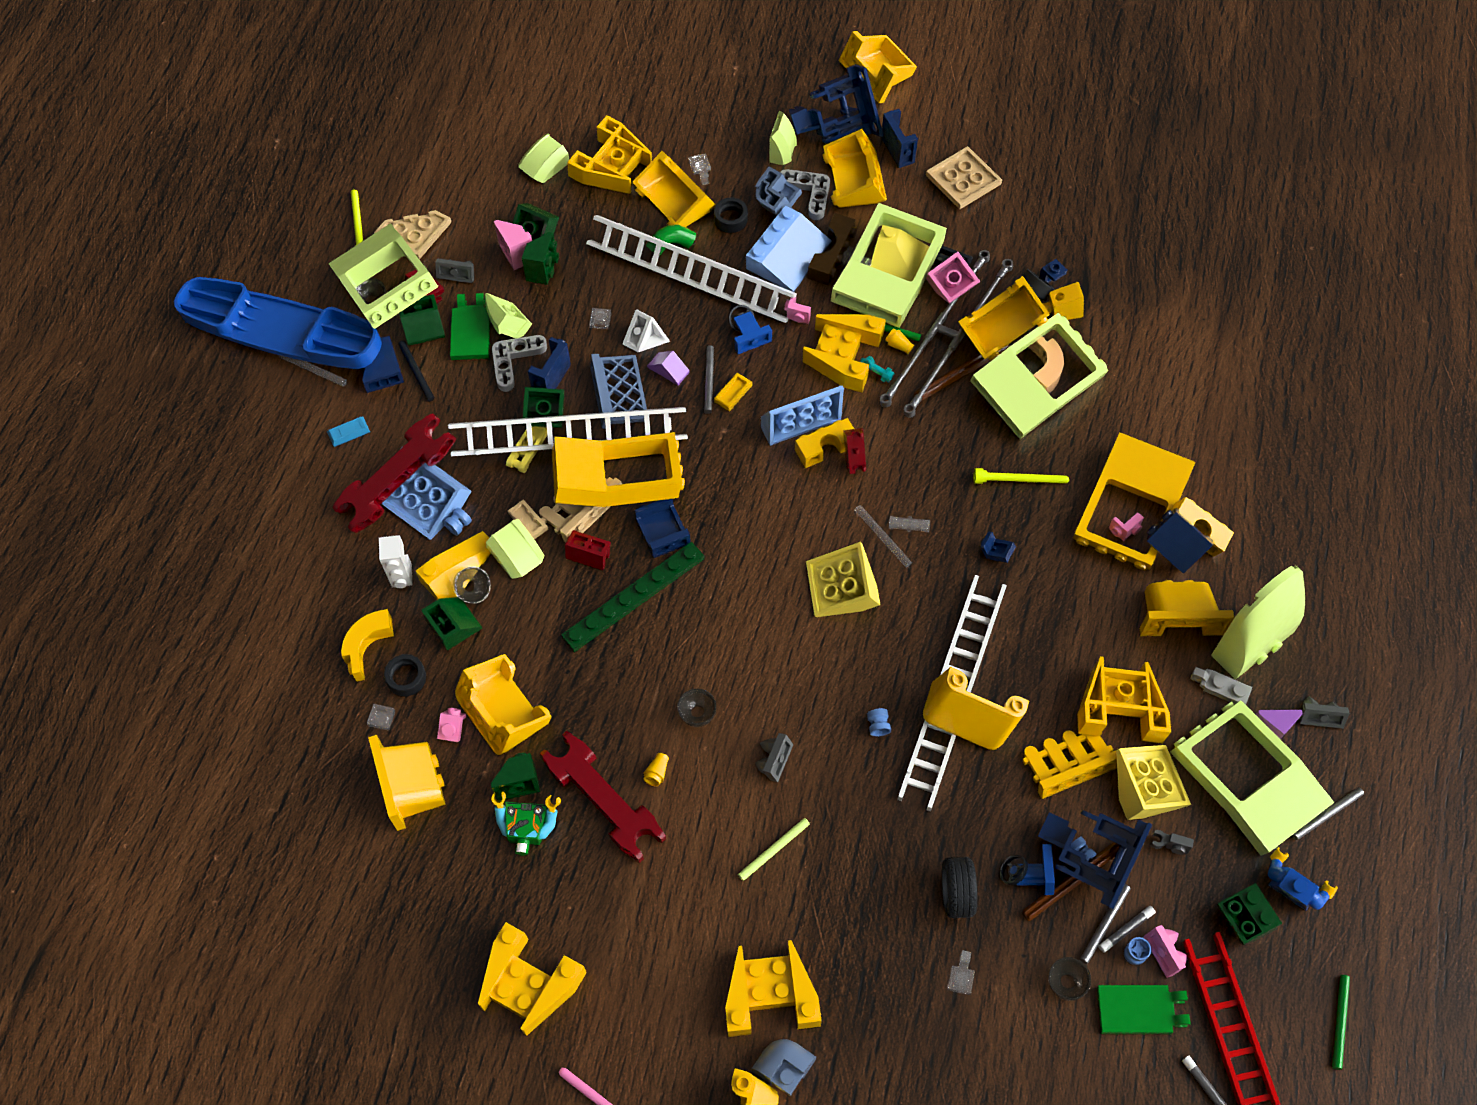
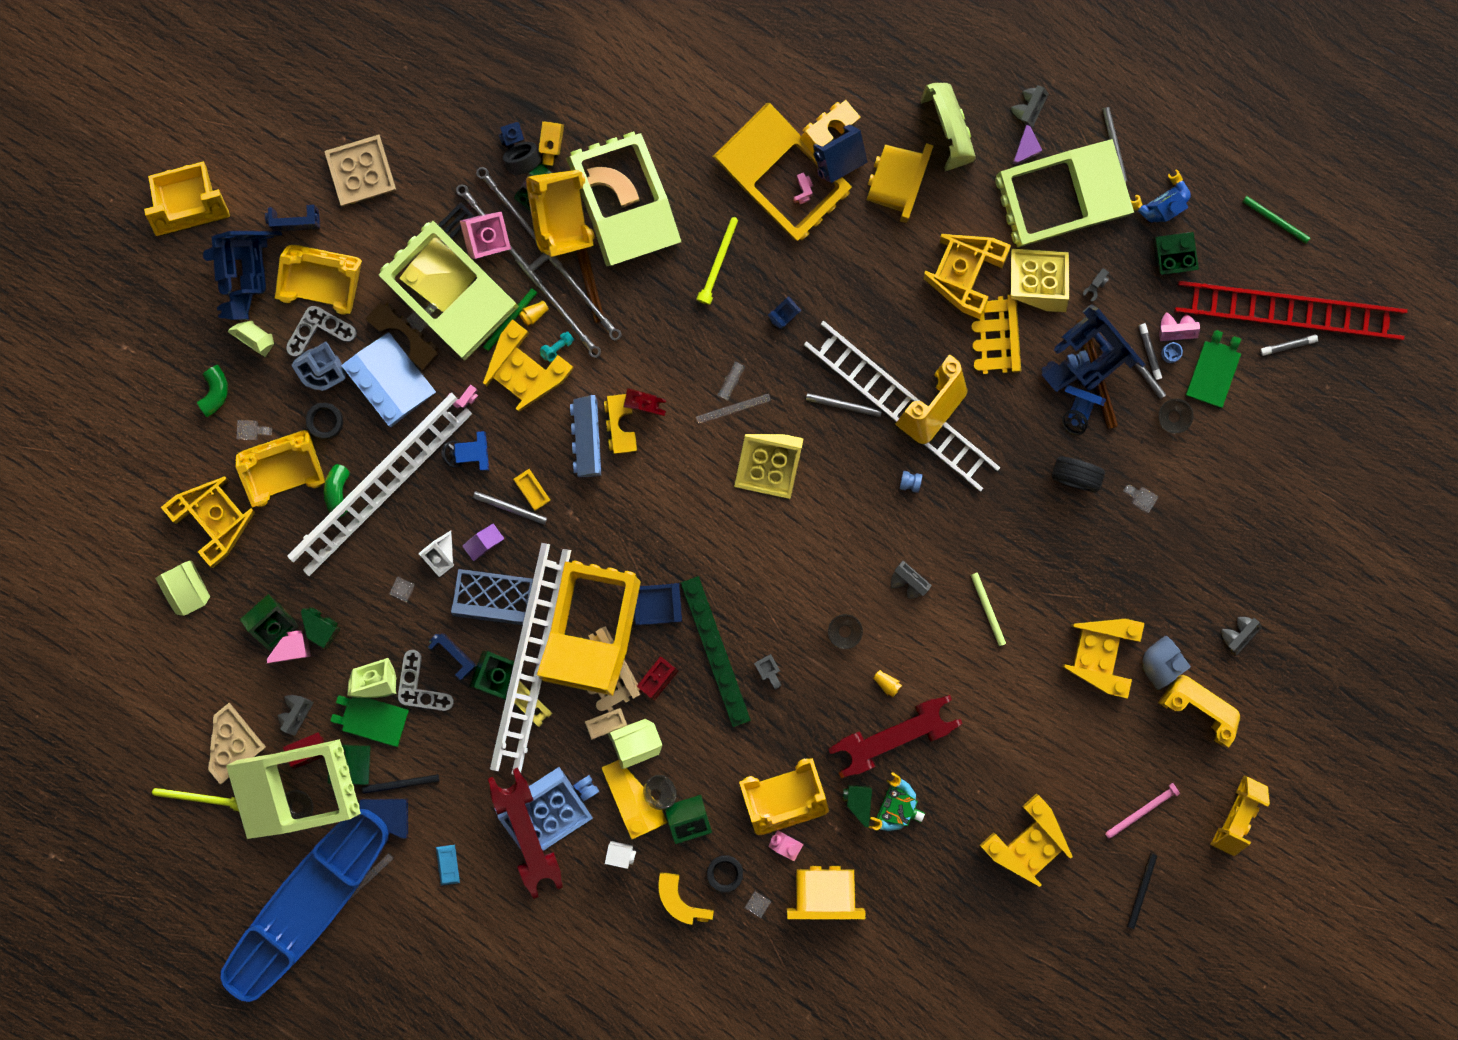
camera: 75 degrees left, 25 degrees up
(630, 648) = (768, 668): none -> dark grey plate
(723, 133) = (217, 391): none -> green cylinder
(930, 635) = (844, 405): none -> flat silver bar
(1221, 685) = (978, 176): light grey hinge -> none

